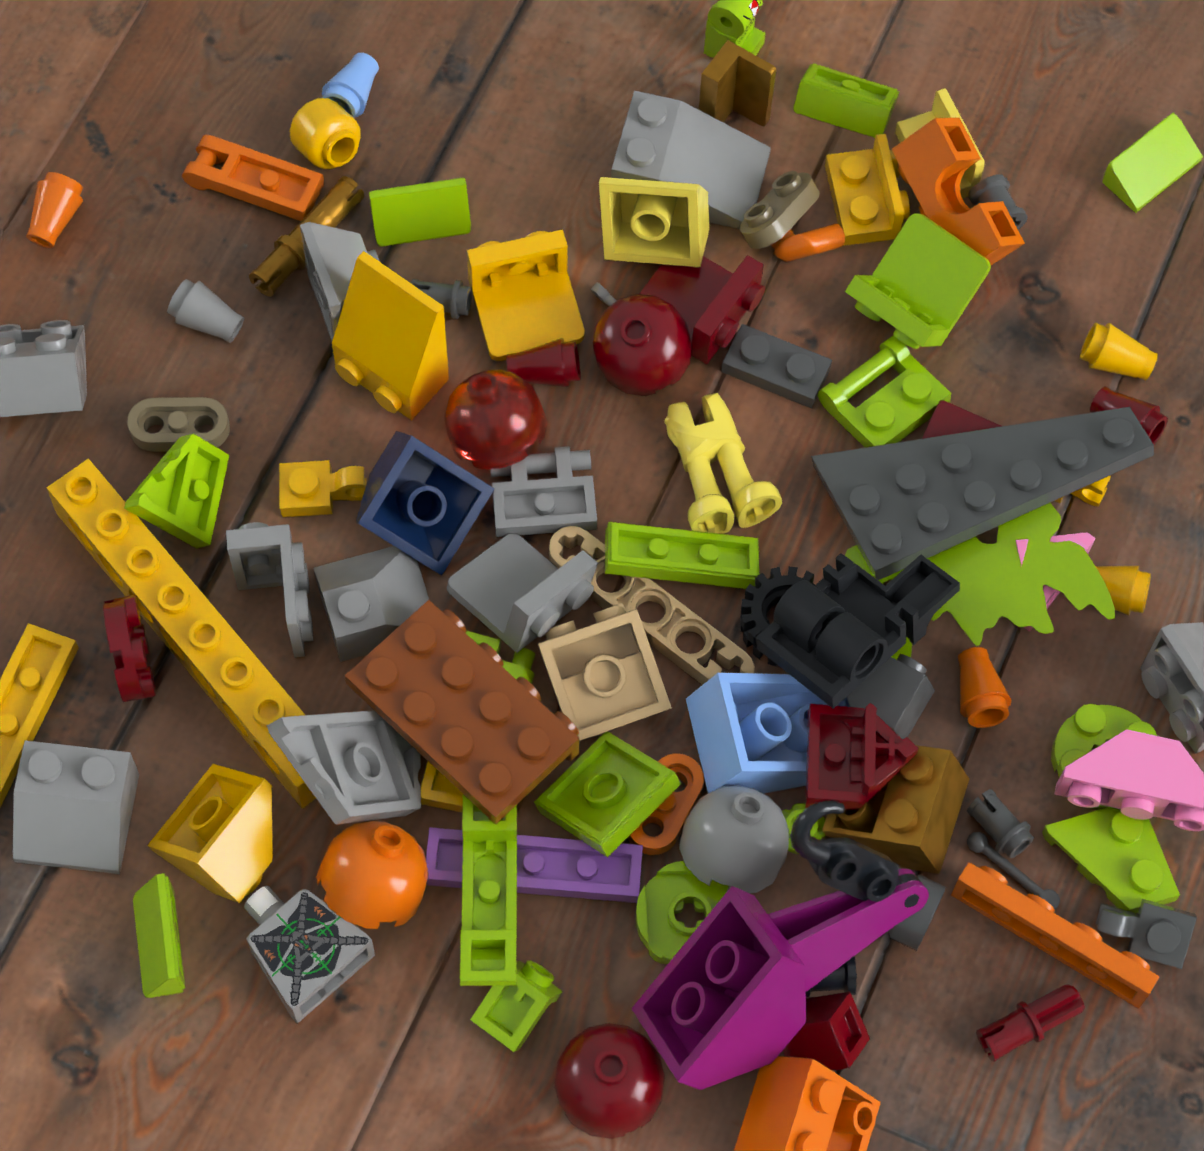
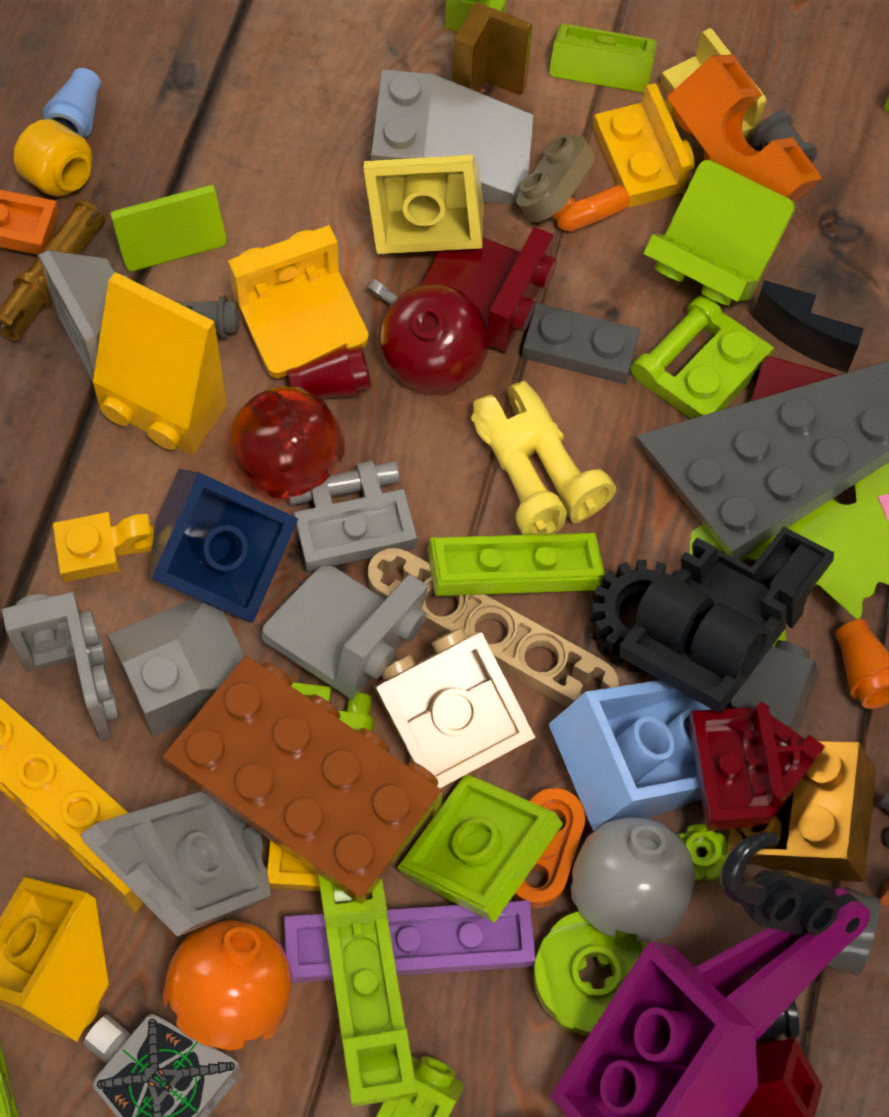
camera: 10 degrees left, 0 degrees up
(971, 368) = (789, 318): none -> black slope

